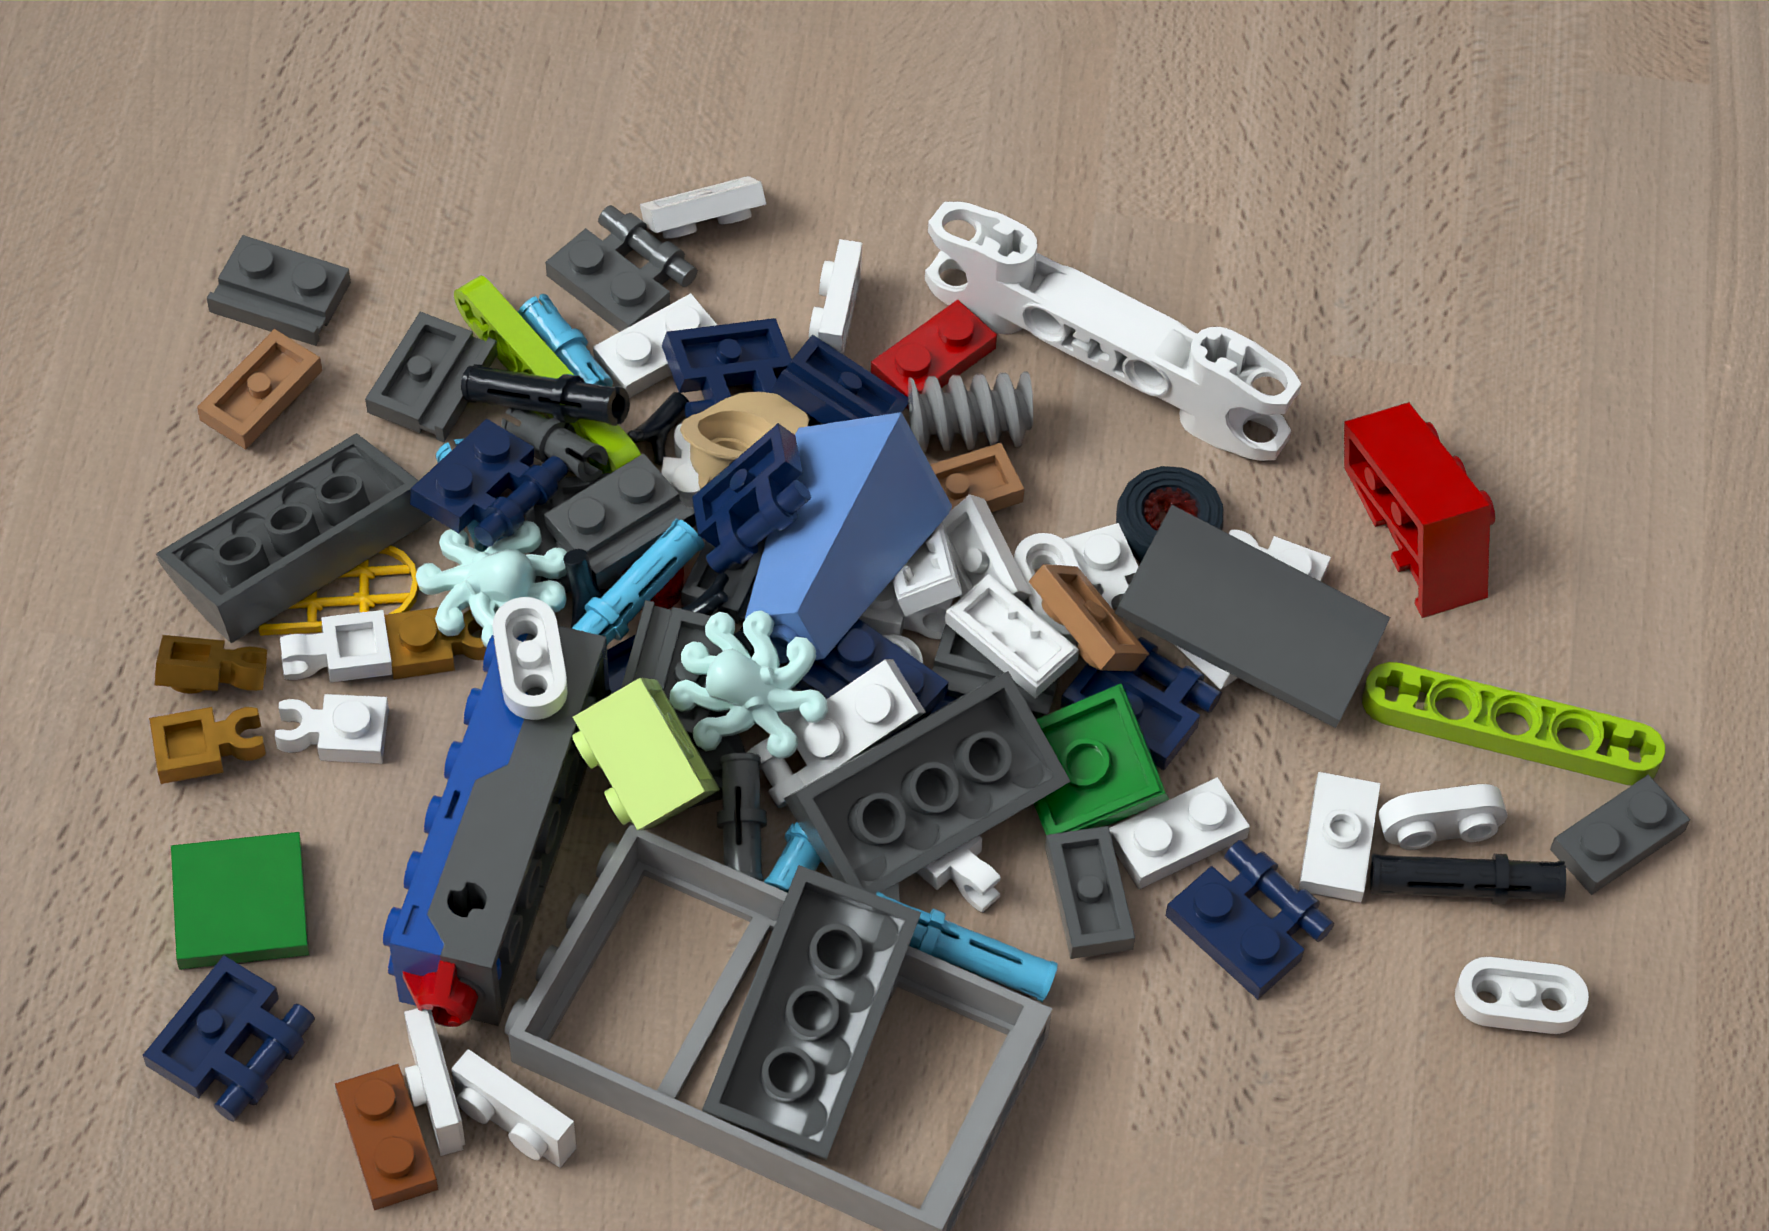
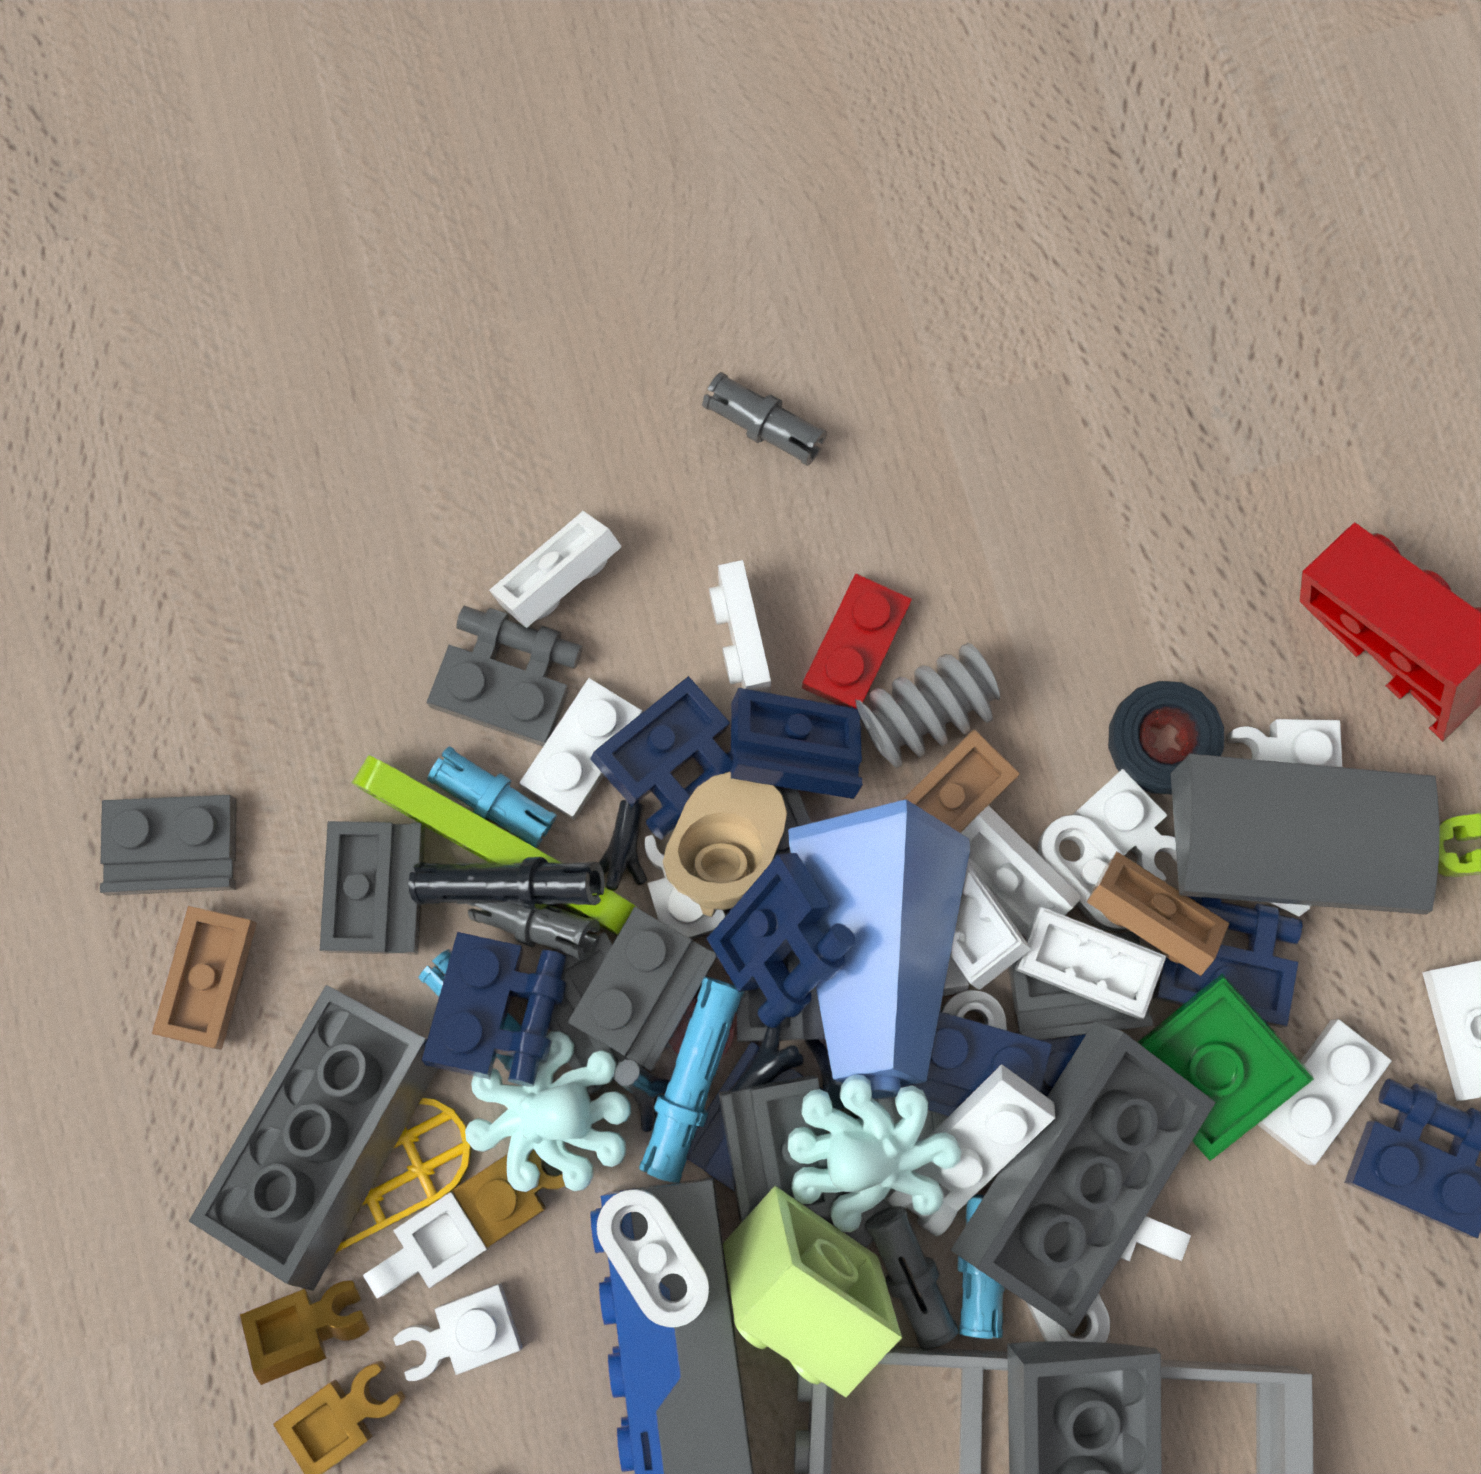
camera: 20 degrees left, 20 degrees up
(935, 161) = (764, 418): none -> dark grey pin
(981, 954) = (1254, 1320): medium azure pin -> none
(1089, 892) = (1274, 1203): dark grey plate -> none
(1199, 373) = (1151, 584): white piece -> none

